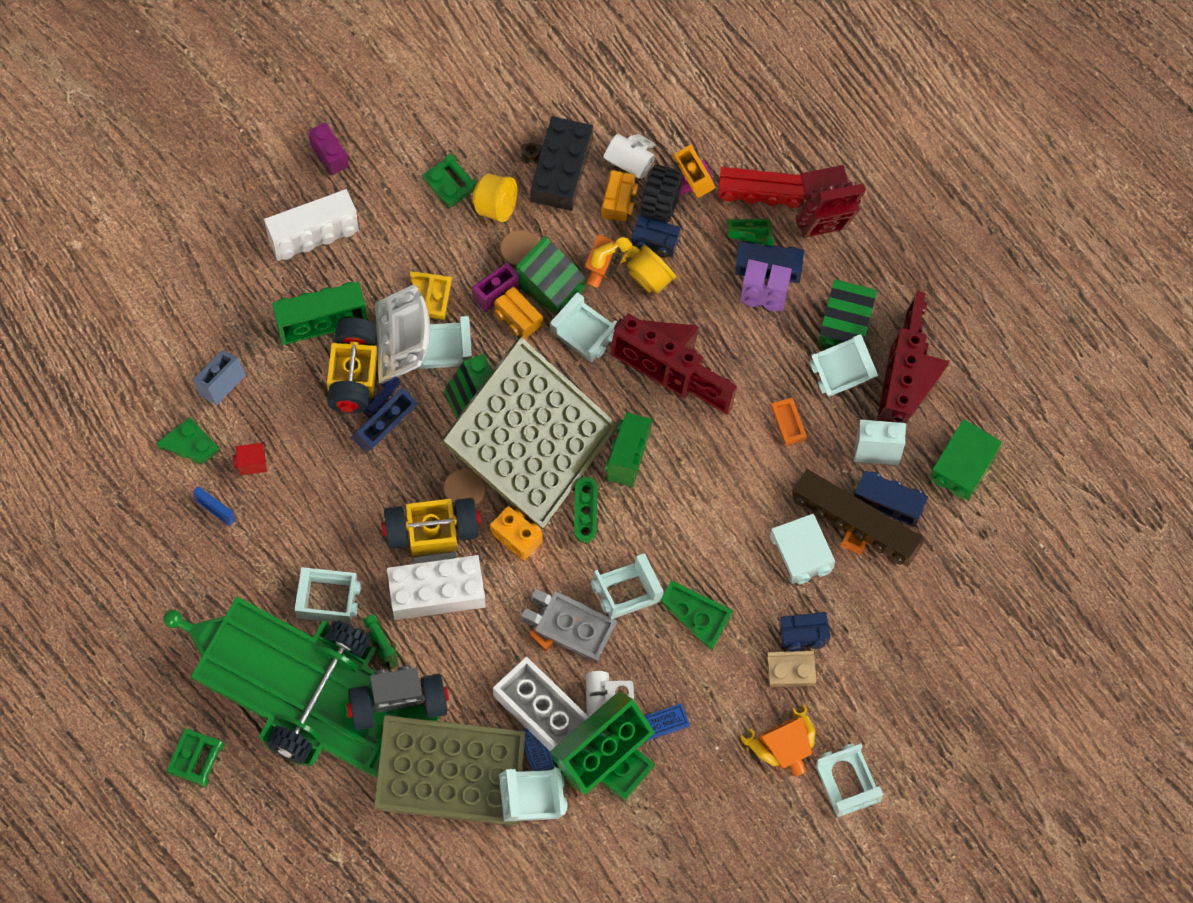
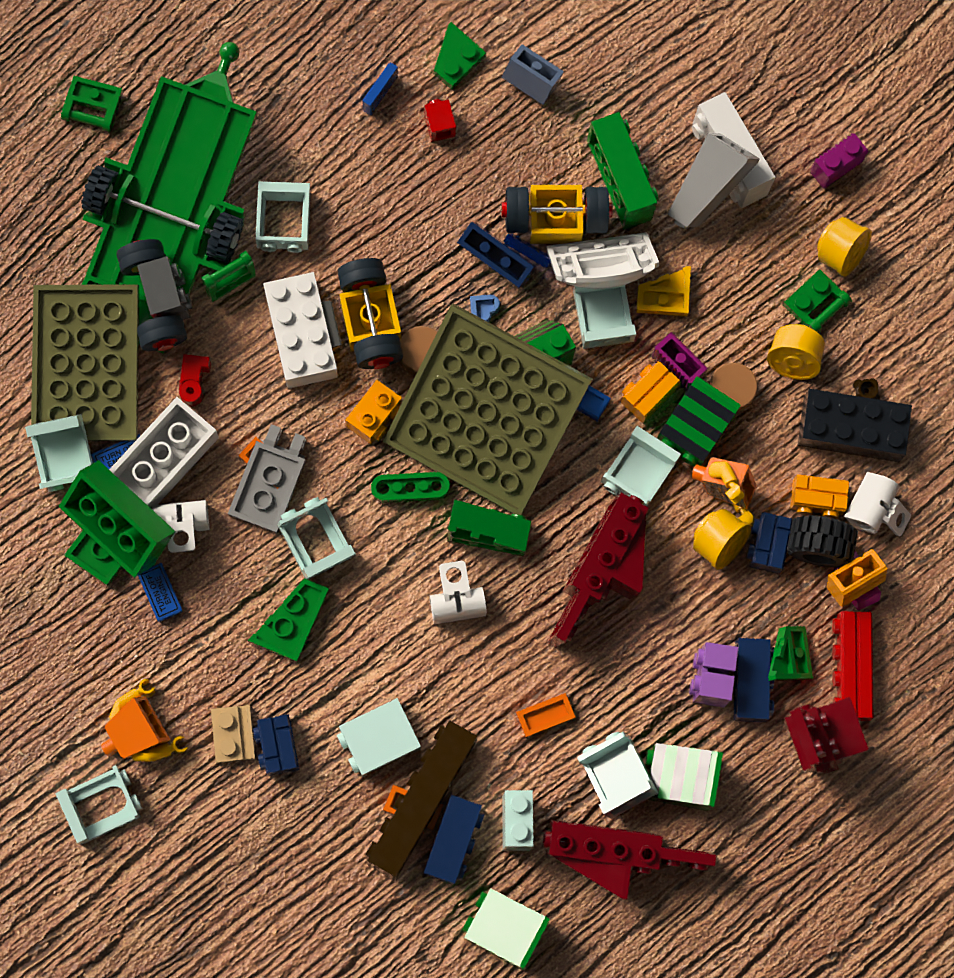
camera: 80 degrees right, 10 degrees up
(339, 236) = (711, 179): none -> light grey slope
(405, 152) = (843, 245): none -> yellow wheel
(428, 440) = (484, 306): none -> medium blue tile
(471, 683) = (191, 378): none -> red leg
(689, 475) = (457, 599): none -> white piece

